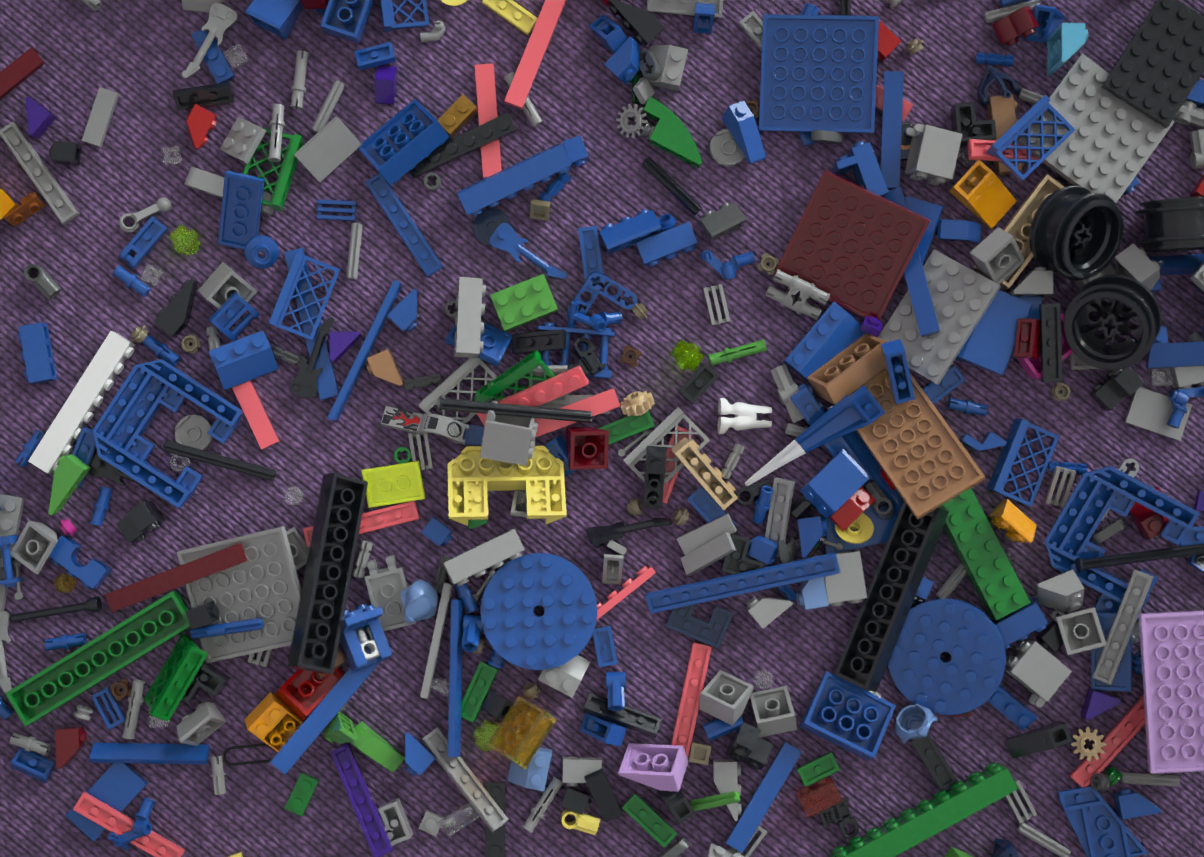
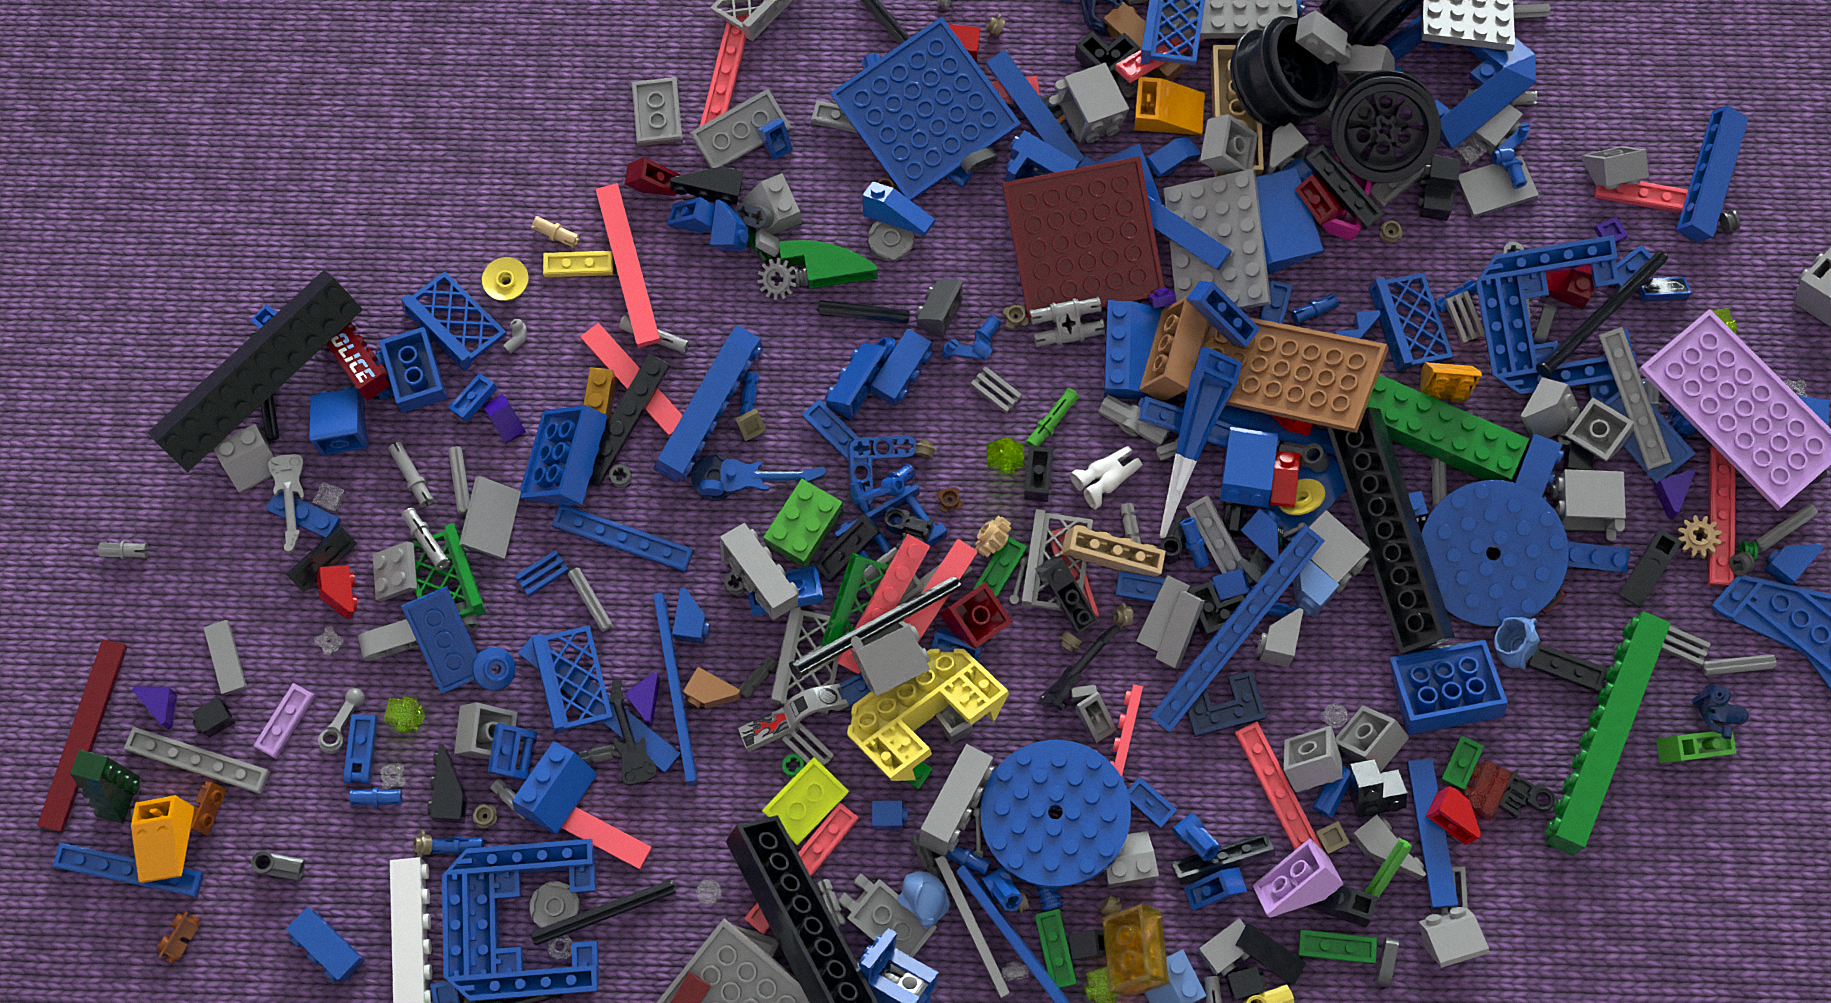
camera: 35 degrees left, 15 degrees down
(109, 187) = (284, 720): none -> lavender tile
(482, 235) = (711, 487): none -> blue tile
(785, 798) = (1454, 815): none -> red slope
(1119, 231) = (1323, 38): none -> light grey brick

